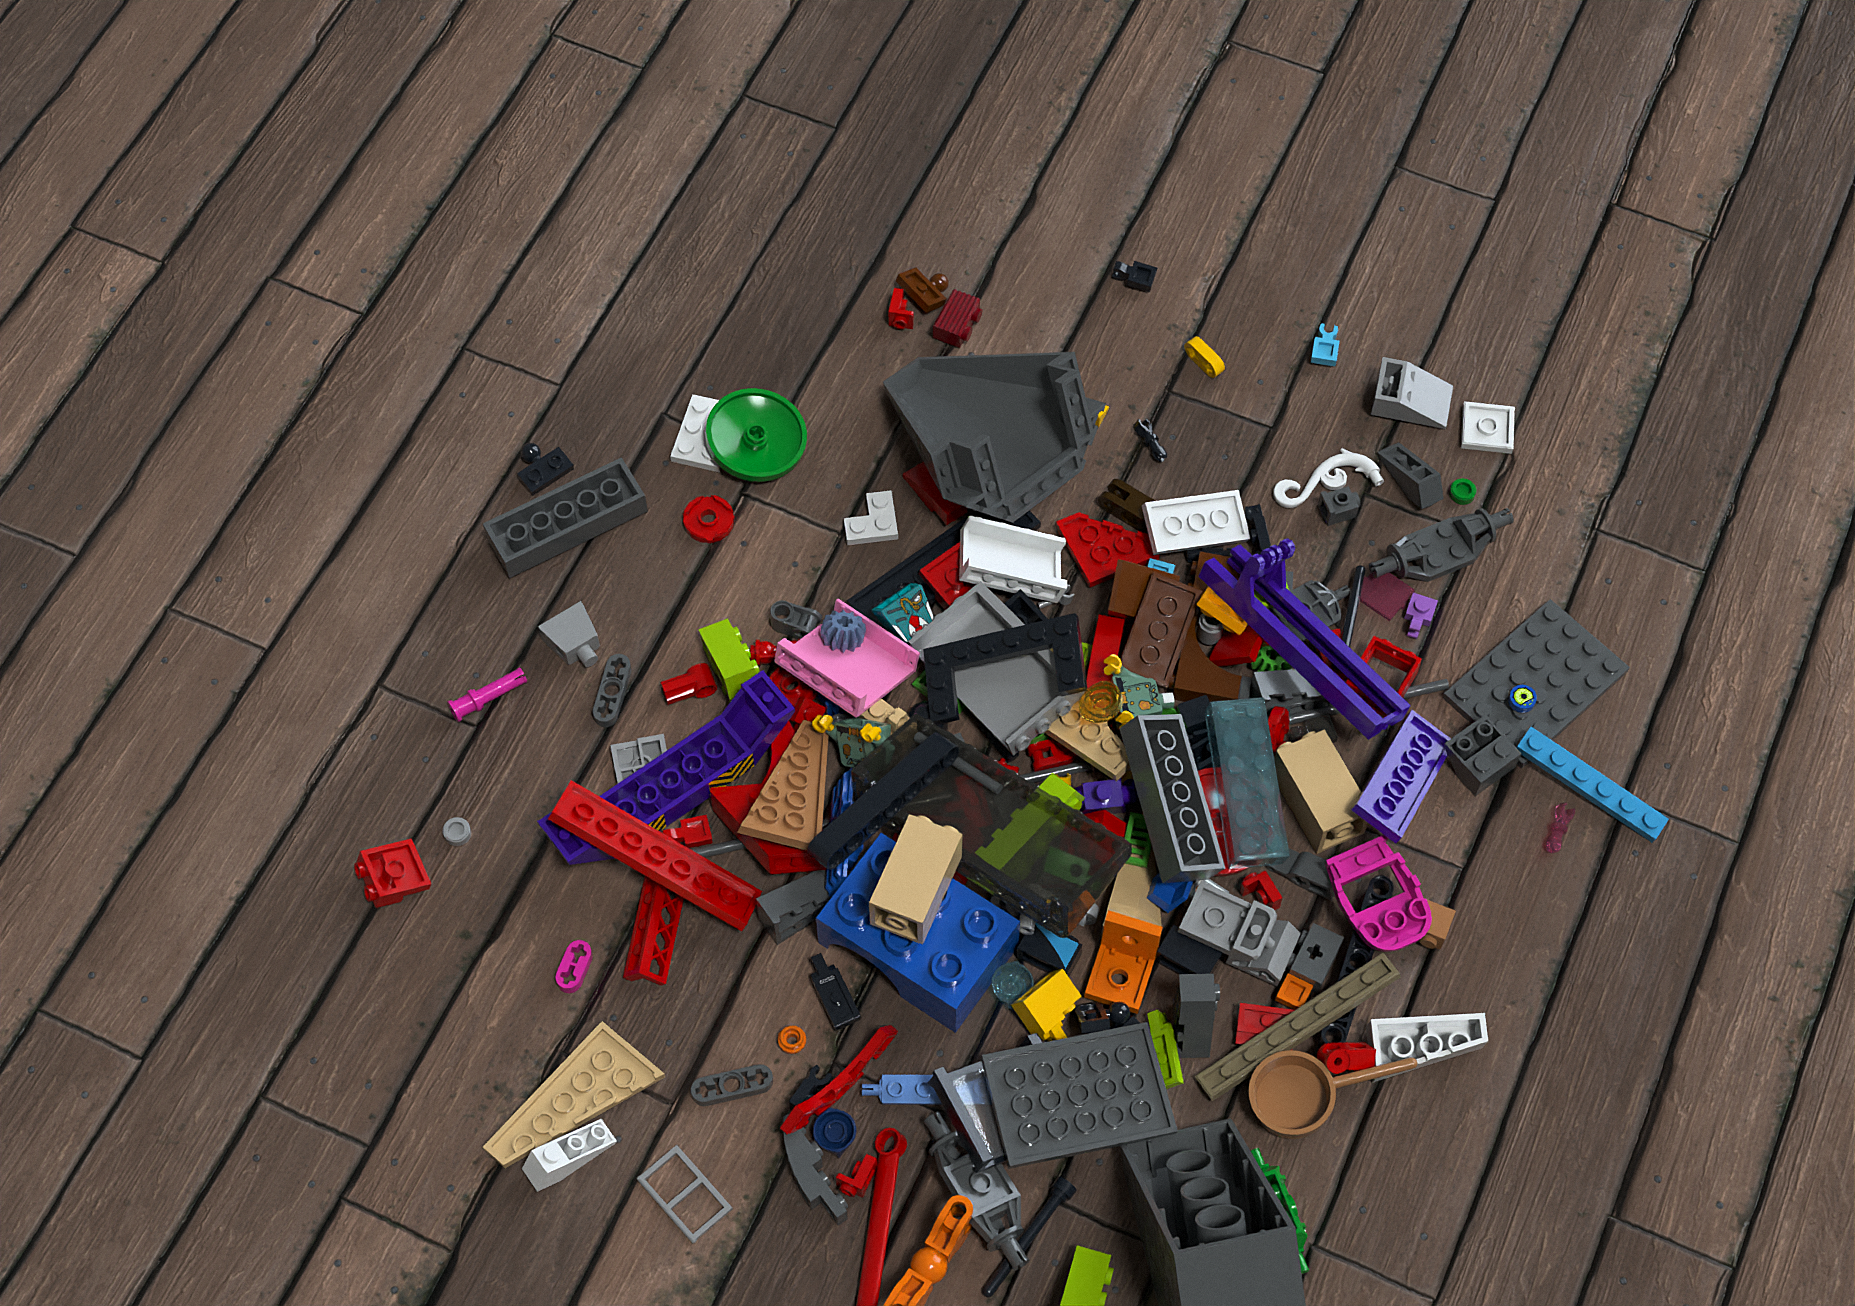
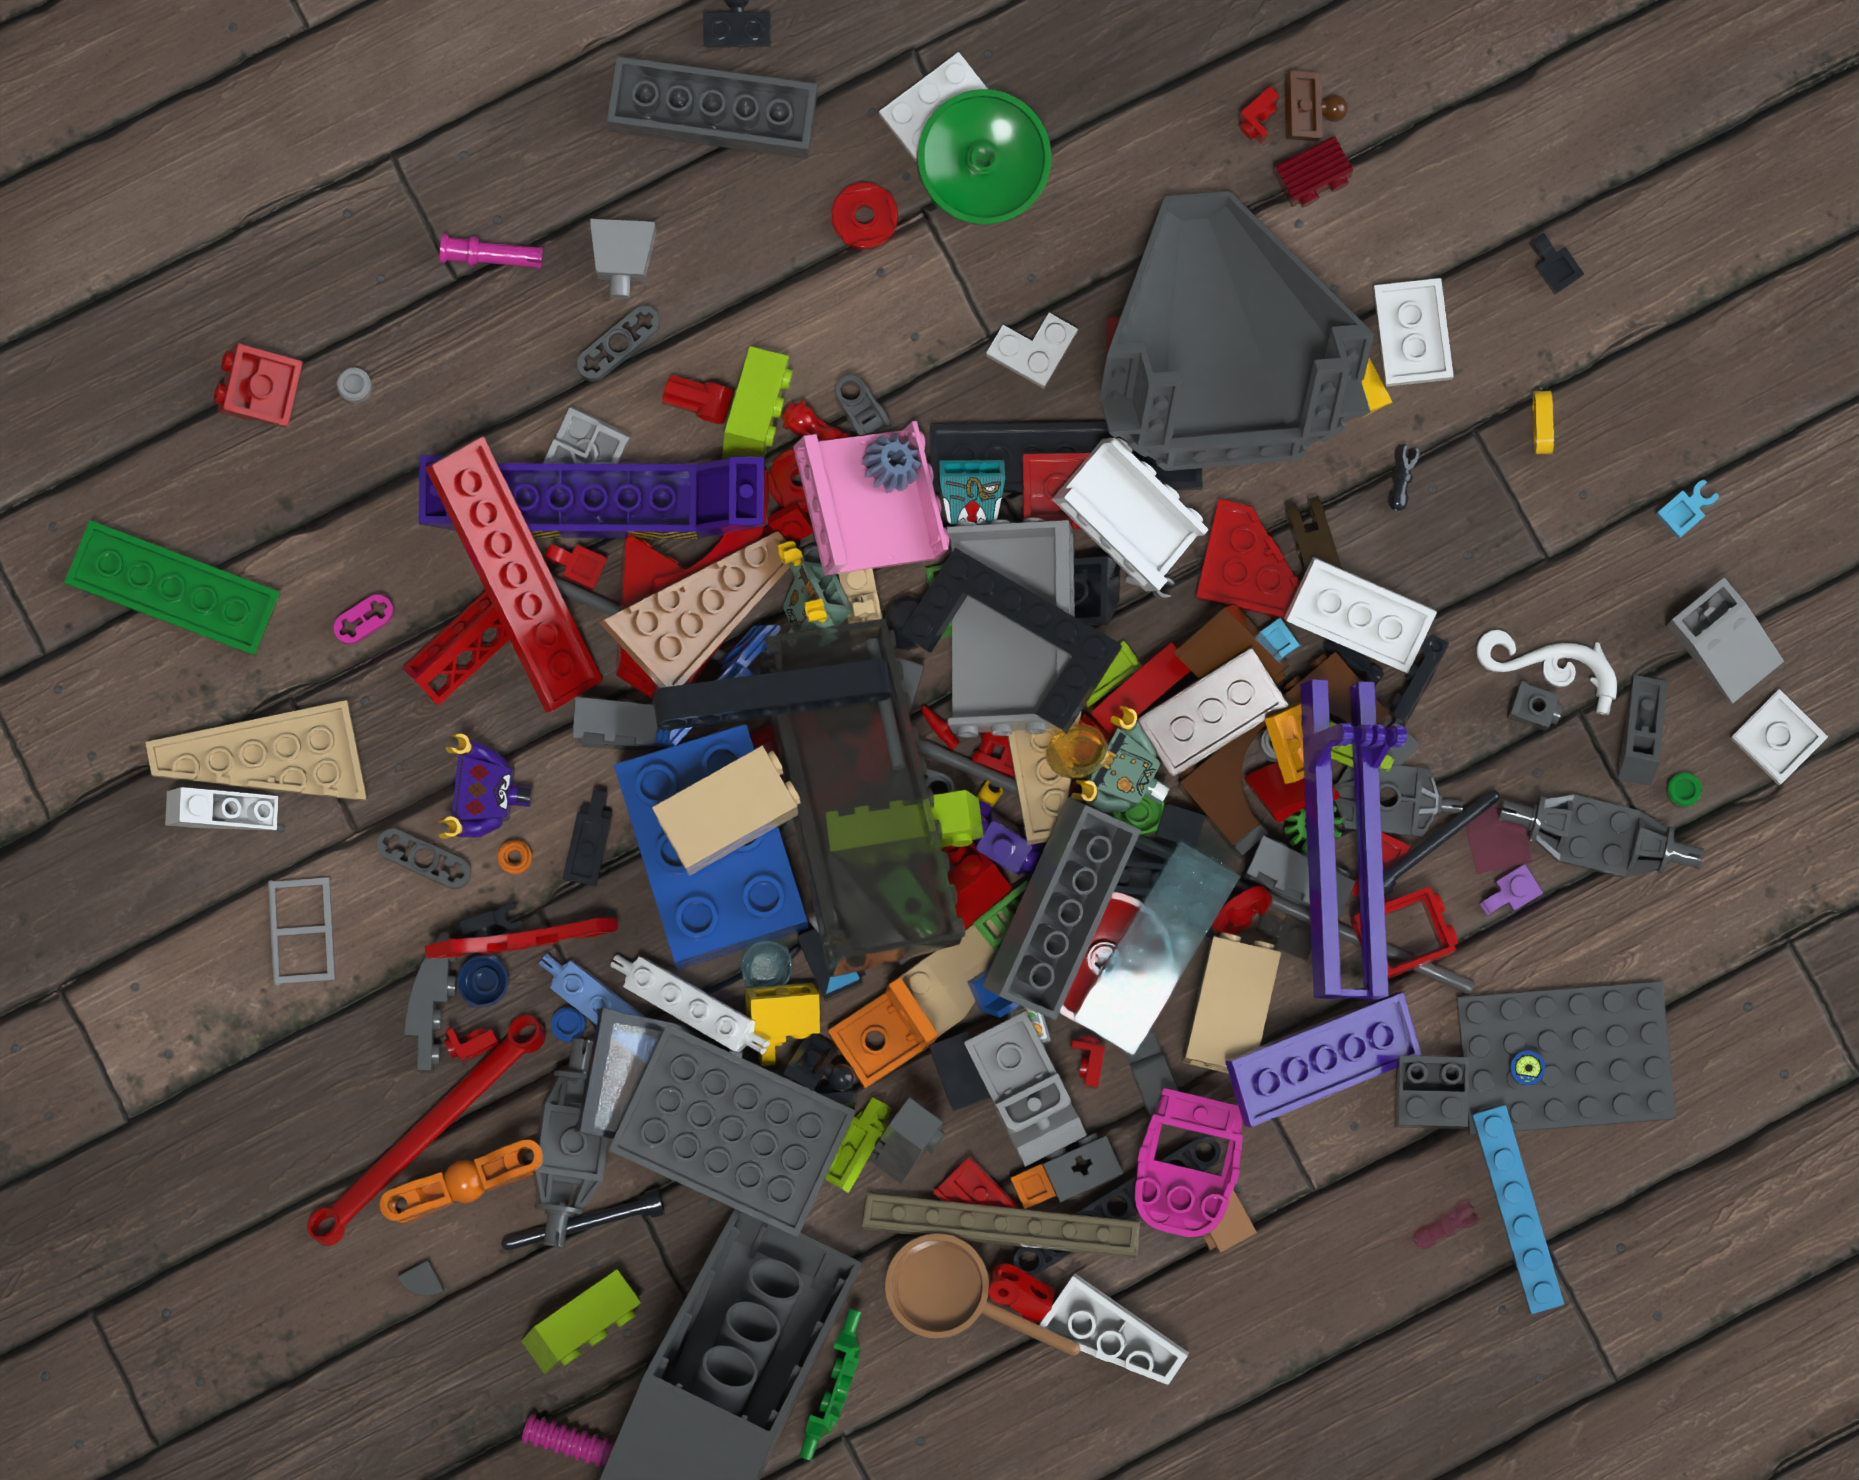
camera: 35 degrees right, 20 degrees up
(426, 1038) = (172, 588): none -> green plate
(737, 1010) = (482, 791): none -> dark purple torso
(912, 1118) = (568, 1024): none -> blue plate
(983, 1039) = (689, 1004): none -> white plate
(1098, 364) = (1413, 332): none -> white plate

